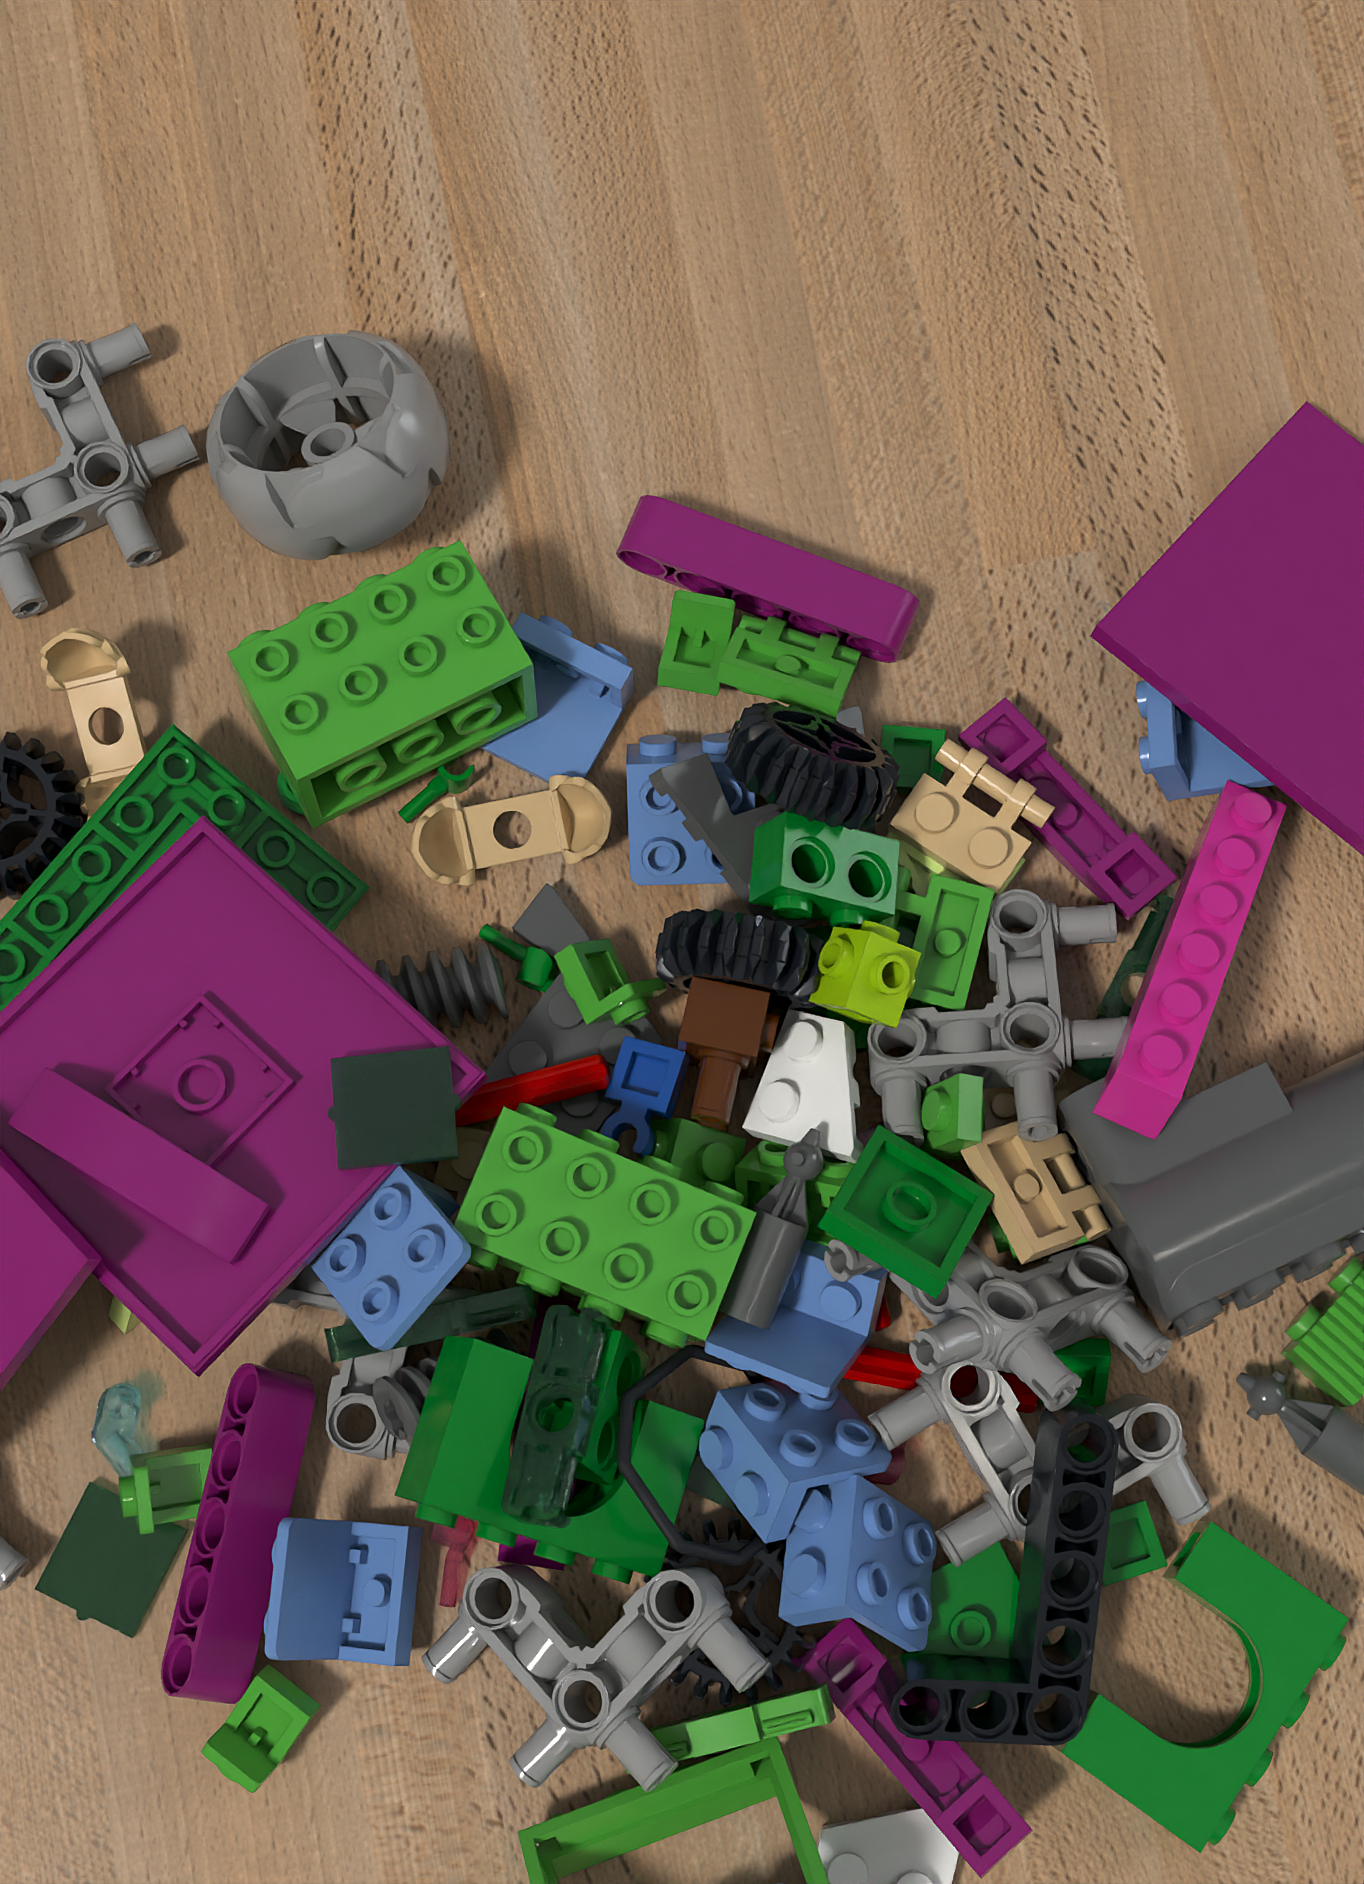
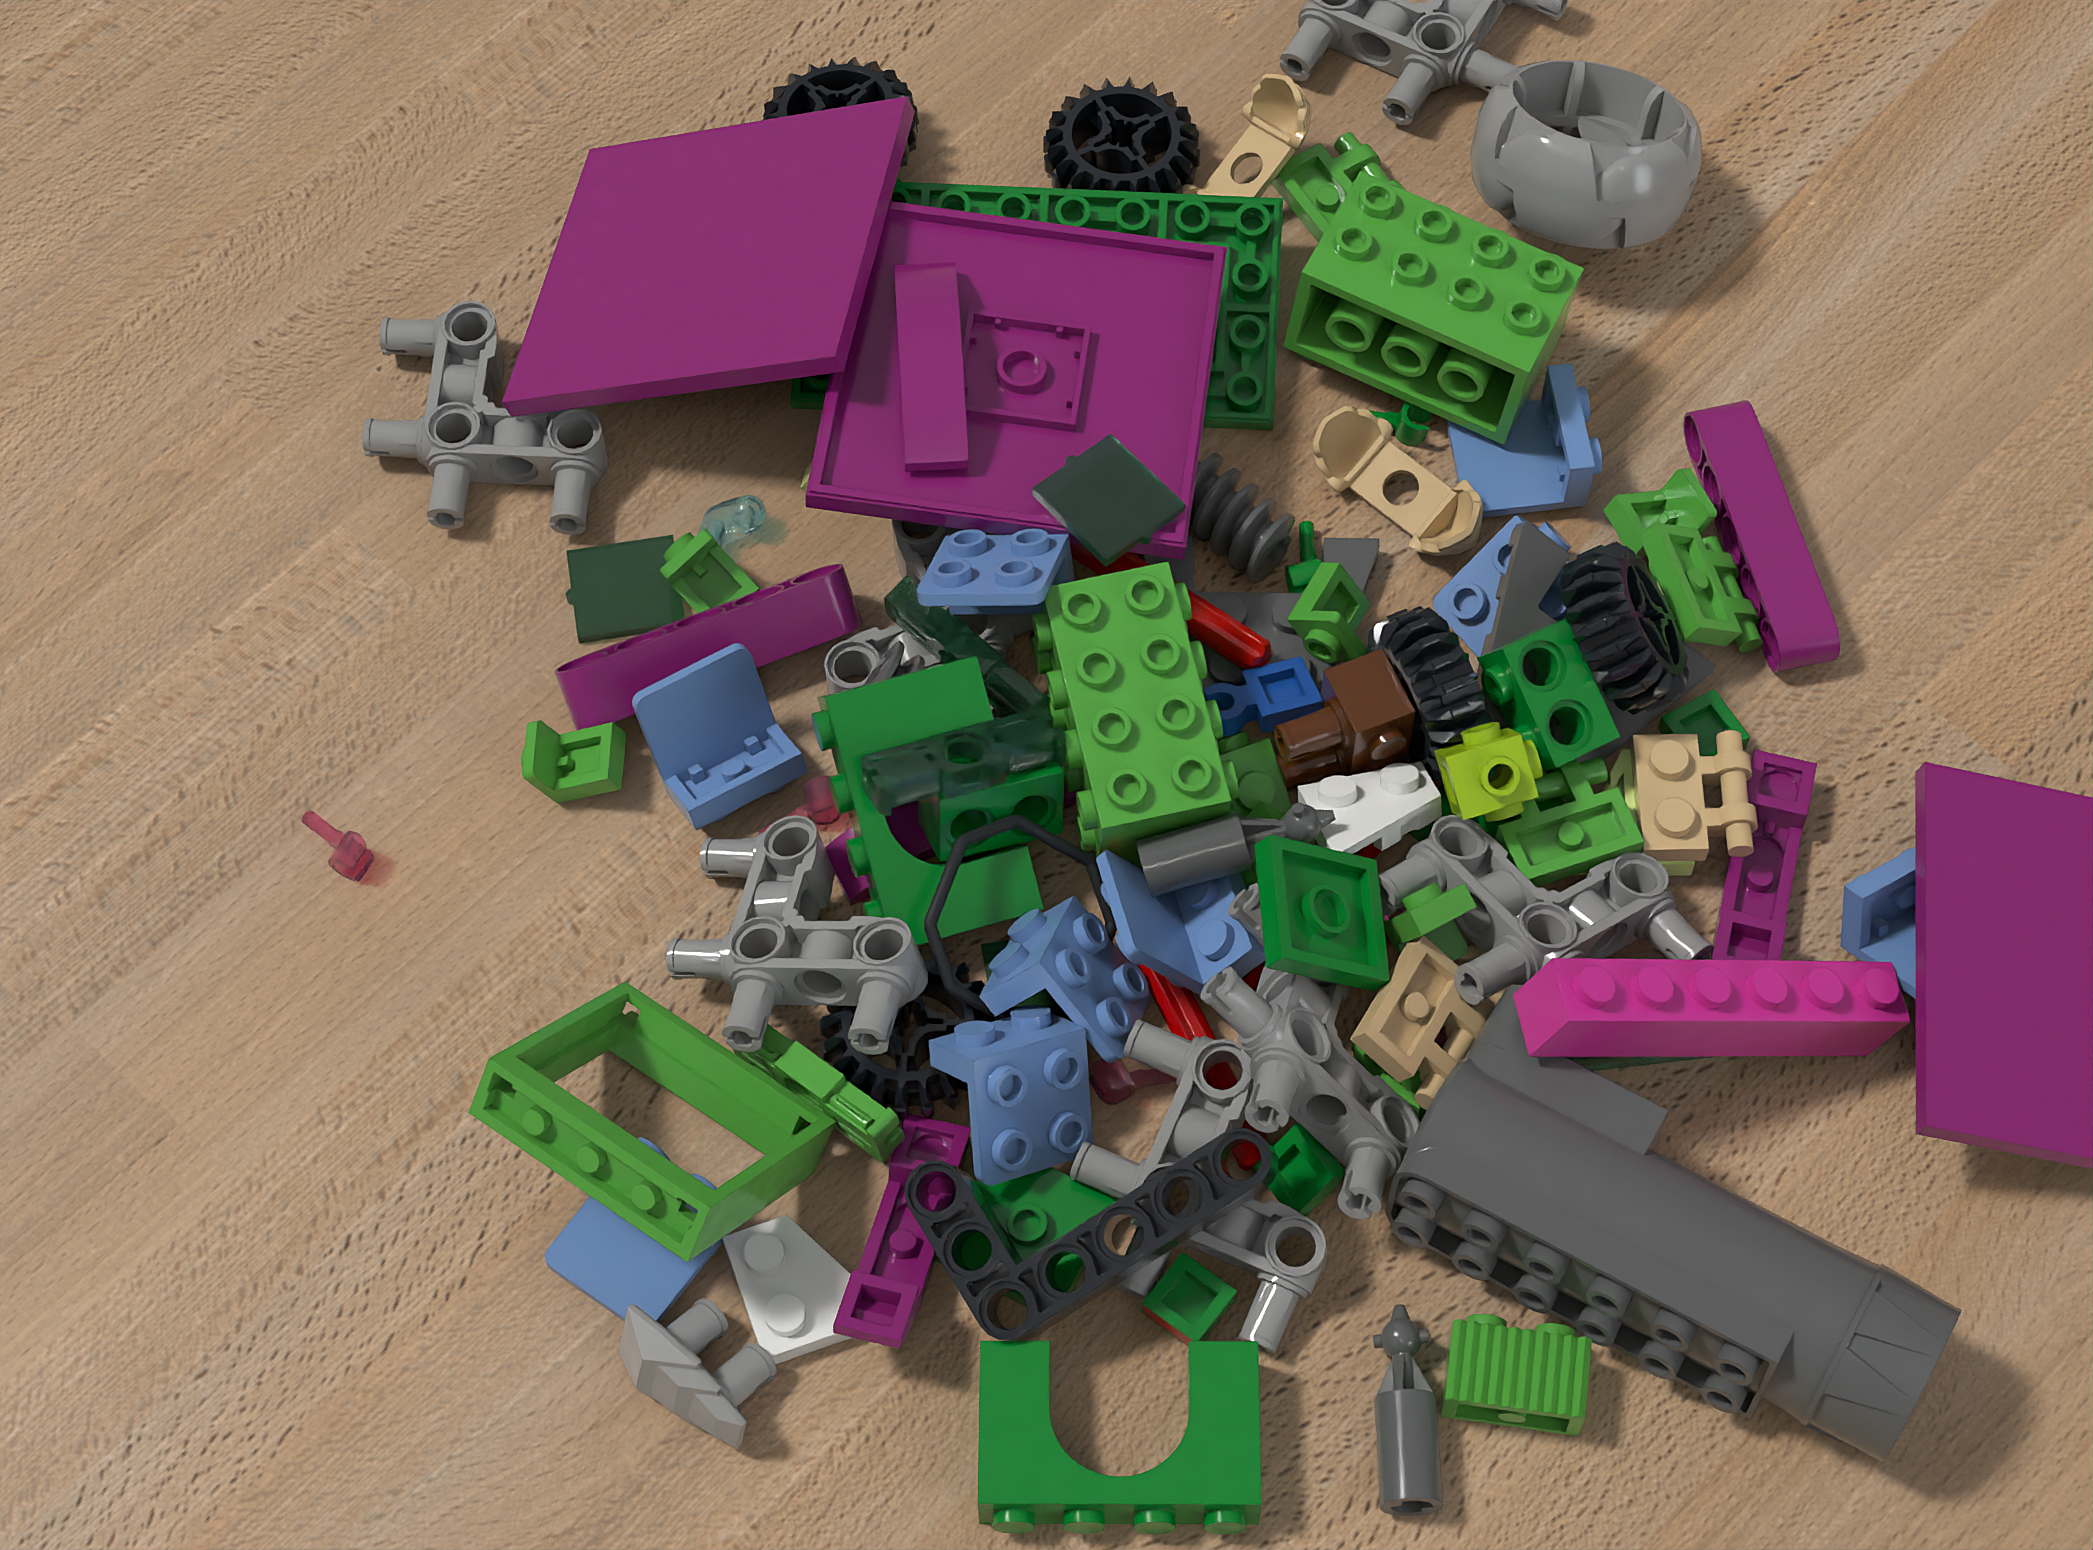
camera: 55 degrees right, 15 degrees down
(185, 678) = (1318, 183): none -> bright green plate

